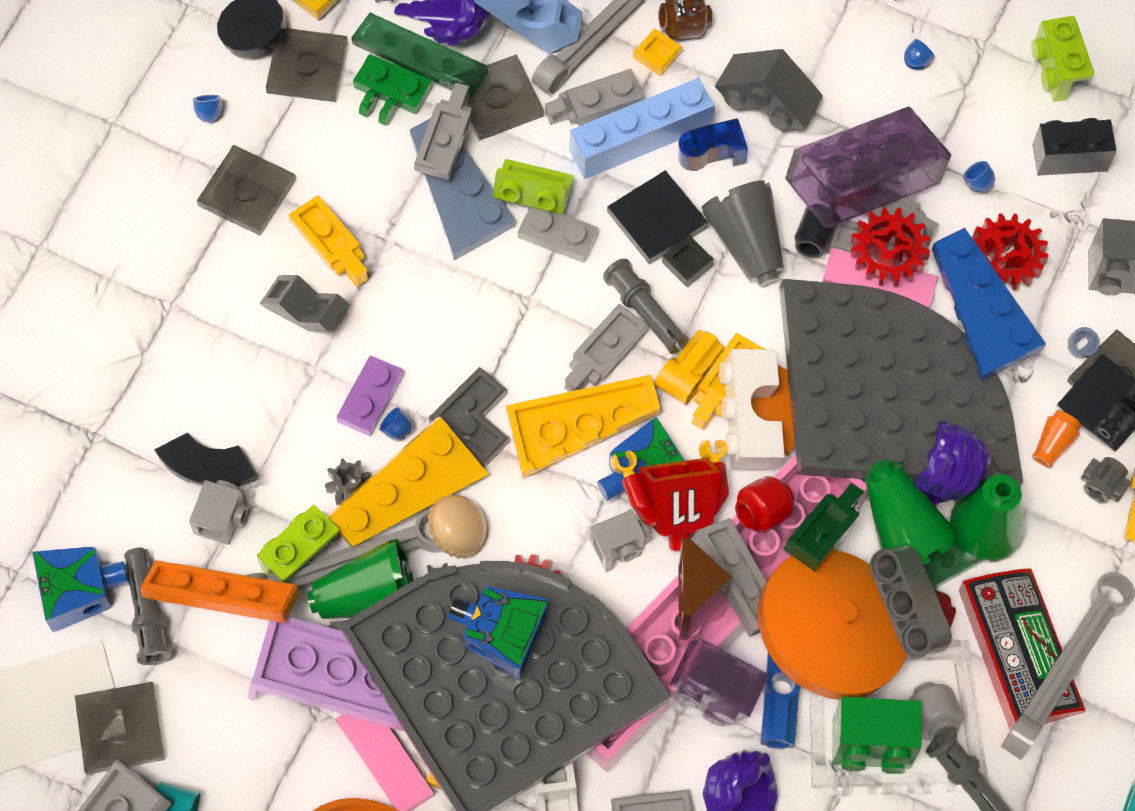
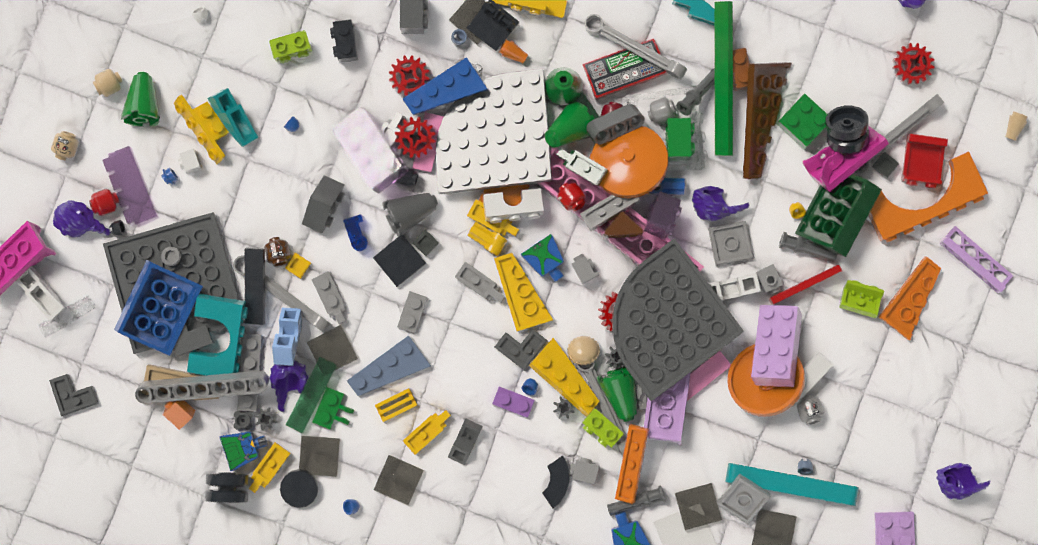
camera: 90 degrees left, 20 degrees up
(376, 169) = (381, 412): none -> yellow tile
(445, 134) = (365, 375): light grey hinge -> none
(501, 626) = (650, 321): torso -> none
(533, 186) = (388, 326): lime bracket -> none
(636, 295) = (448, 268): dark grey pin -> none
(640, 128) = (350, 271): light blue brick -> none
(677, 495) = (563, 239): red torso -> none
(954, 464) = (549, 102): dark purple hair -> none
(980, 176) = (364, 90): blue hinge -> none
(1105, 480) = (535, 27): dark grey gear -> none

